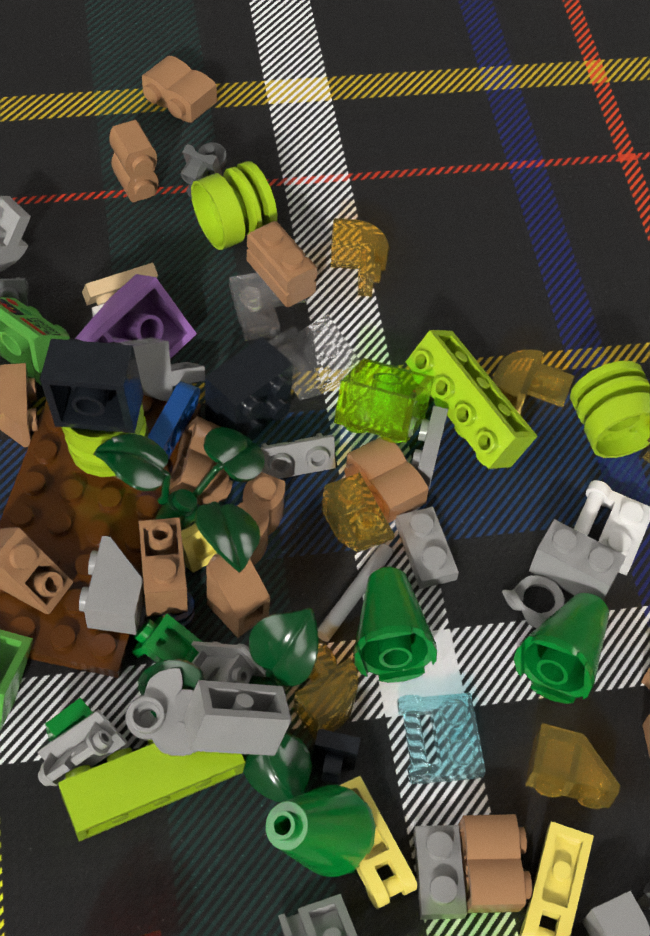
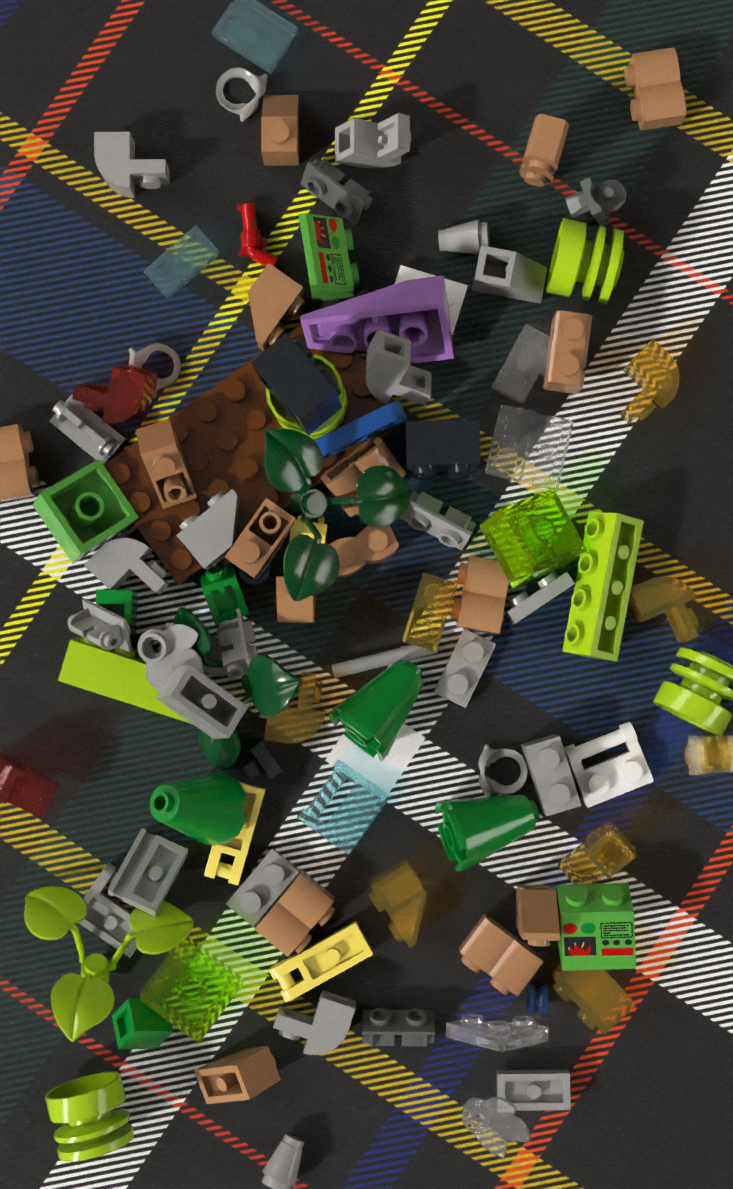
camera: 50 degrees right, 30 degrees up
(50, 682) = (122, 557): none -> light grey brick
(102, 289) = (423, 258): tan plate -> none
(130, 254) = (465, 237): none -> light grey cone
(182, 255) = (509, 275): none -> light grey slope

